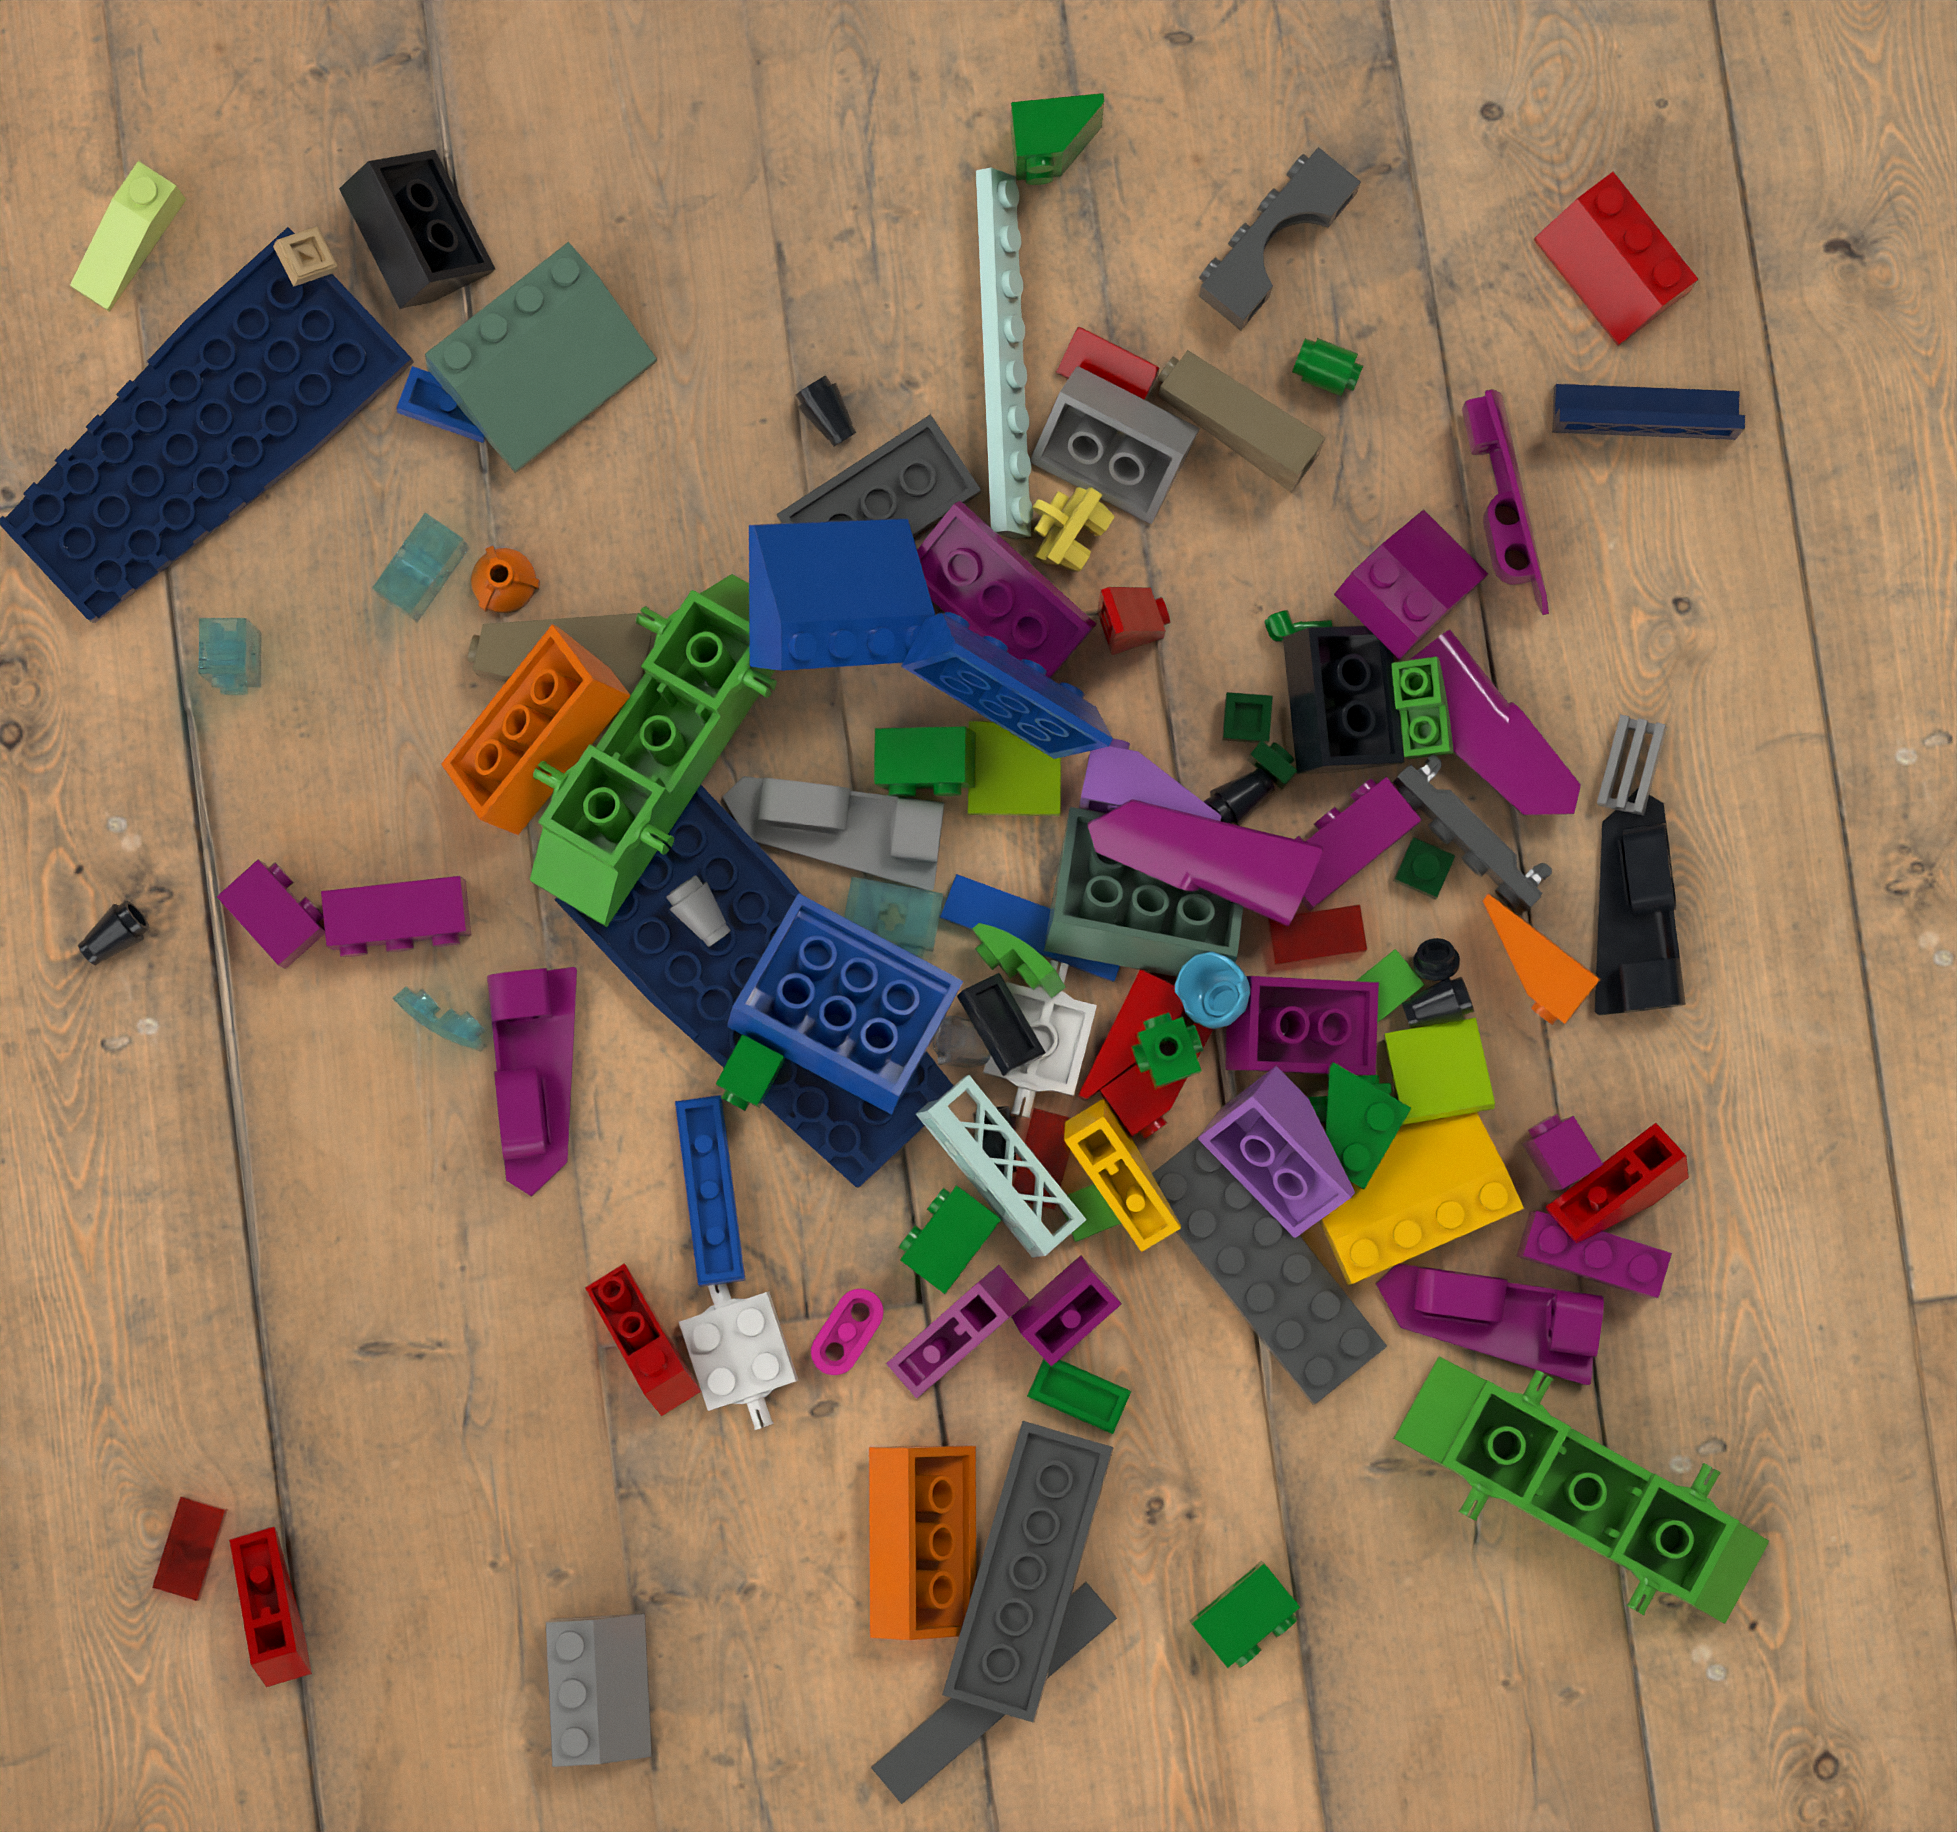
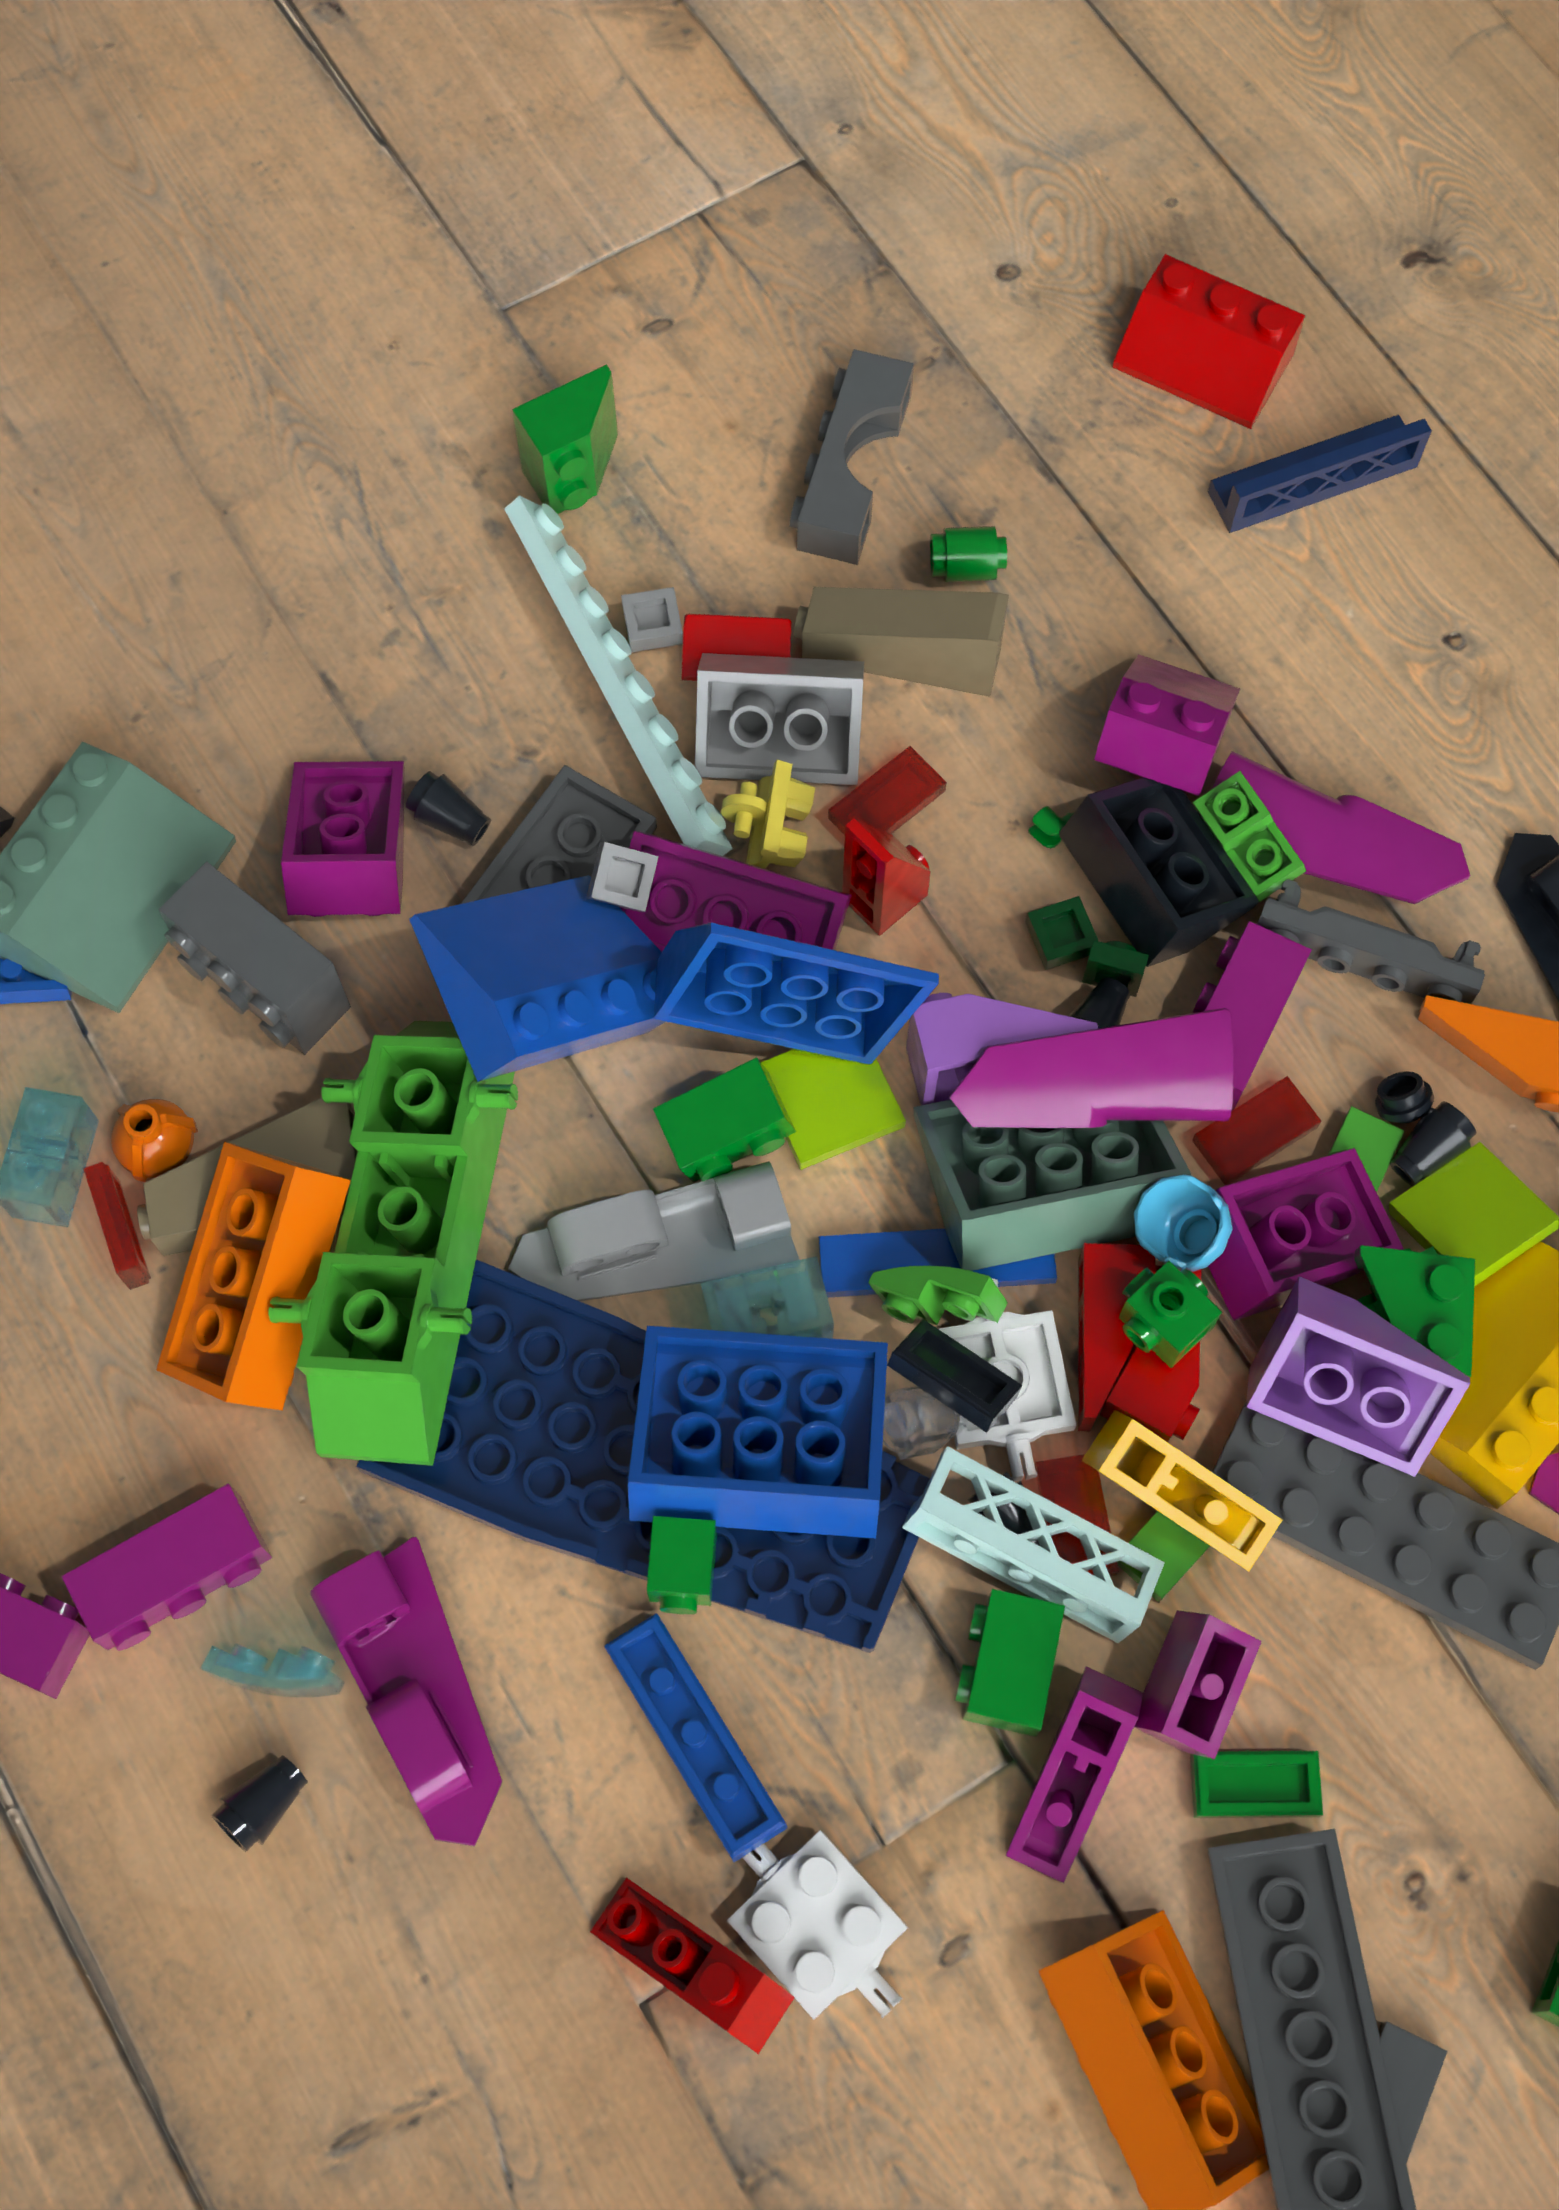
camera: 25 degrees left, 15 degrees down
(397, 1104) = (259, 1803): none -> black cone
(453, 642) = (117, 1225): none -> clear red tile
(628, 481) = (254, 959): none -> dark grey brick
(698, 910) = (536, 1399): light grey cone -> none
(739, 399) = (344, 839): none -> magenta slope
(847, 1331) = (941, 1836): dark pink plate -> none
(928, 538) = (622, 877): none -> light grey plate
(1053, 314) = (652, 619): none -> light grey plate
(1167, 548) = (891, 794): none -> clear red tile
(1424, 868) = (1335, 1010): dark green plate -> none
(1491, 434) = (1181, 550): magenta panel -> none
(1640, 727) = (1487, 770): light grey tile -> none

